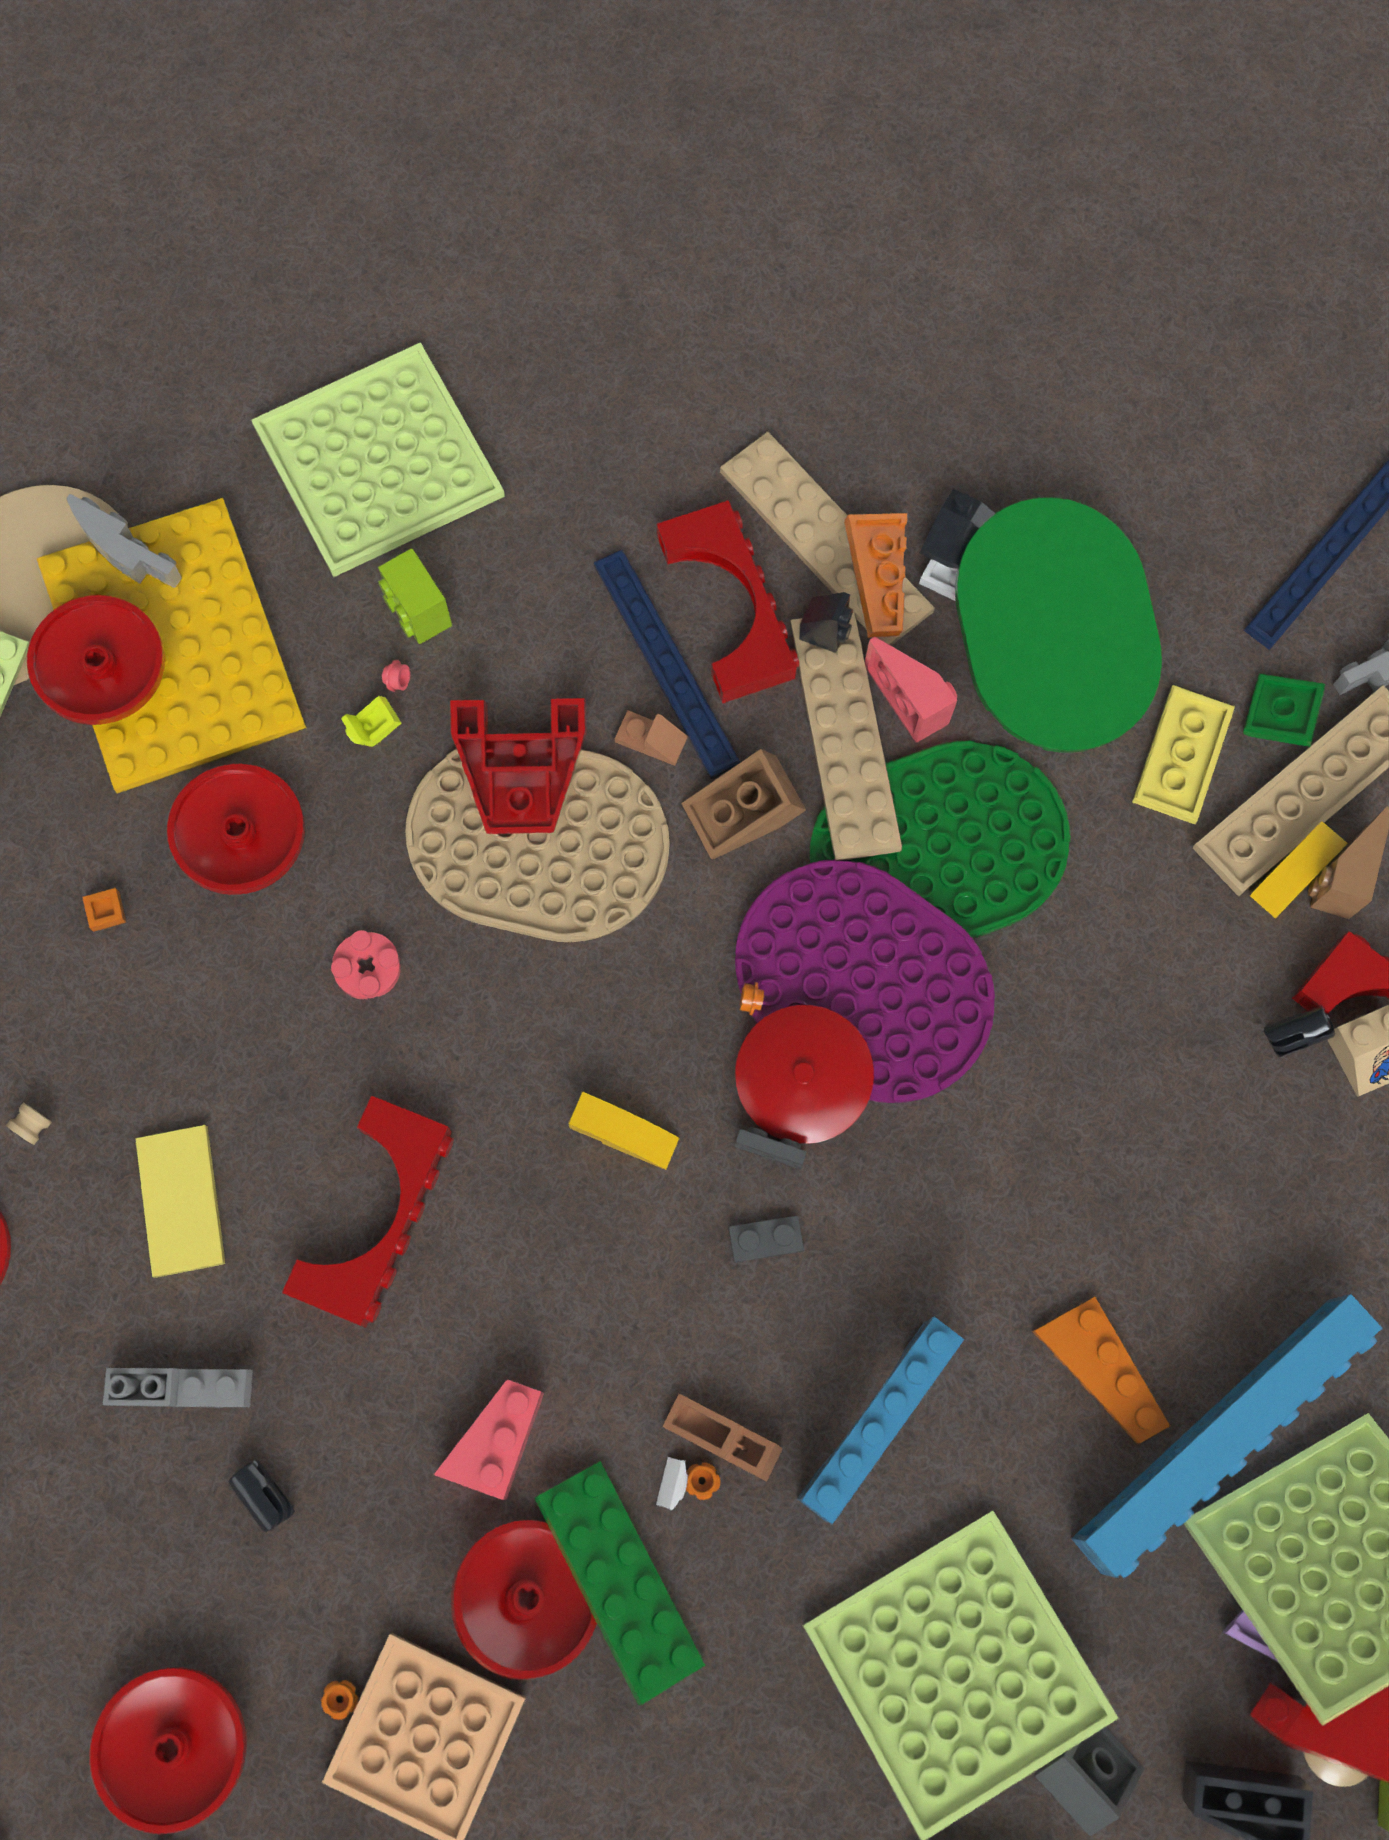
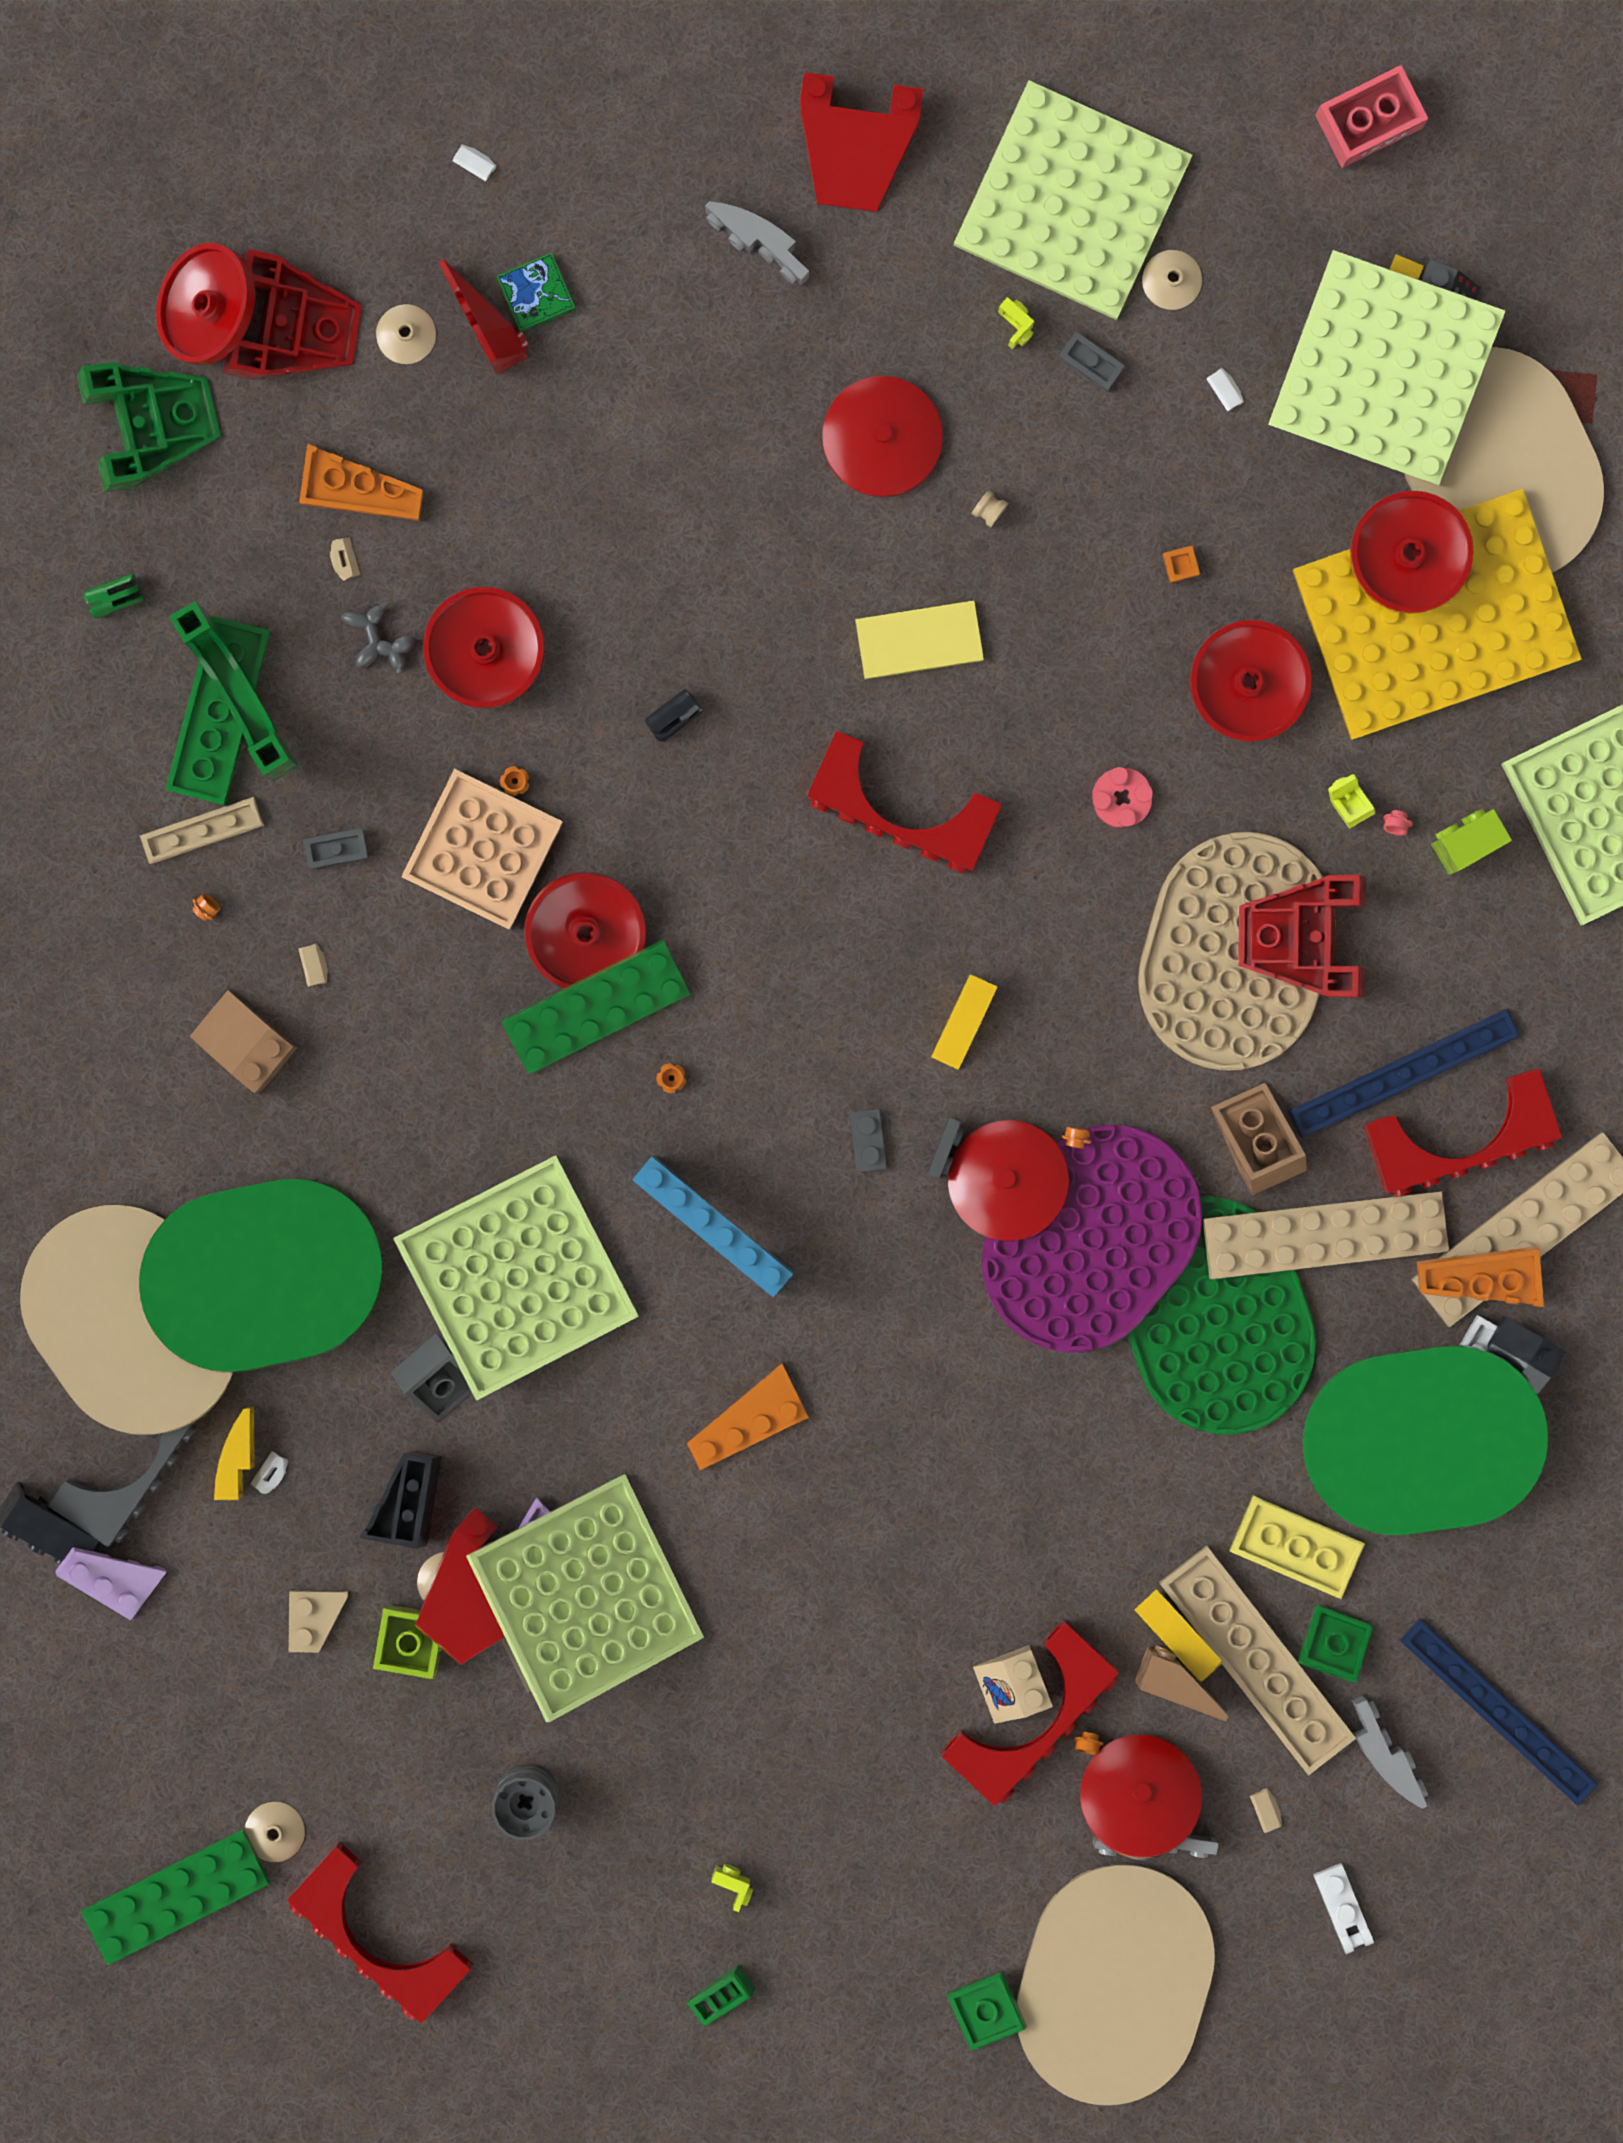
camera: 90 degrees right, 15 degrees up
(119, 547) = (1536, 559): light grey slope -> none
(177, 1387) = (762, 645): light grey slope -> none
(495, 1442) = (708, 908): coral wedge -> none
(652, 737) = (1329, 1057): nougat slope -> none
(673, 1483) = (670, 1054): white piece -> none
(722, 1437) = (705, 1096): nougat slope -> none
(827, 621) = (1429, 1222): black slope -> none
(912, 689) = (1360, 1300): coral slope -> none
(1226, 1436) = (691, 1514): dark azure brick -> none
(1299, 1031) = (1030, 1618): black arm -> none

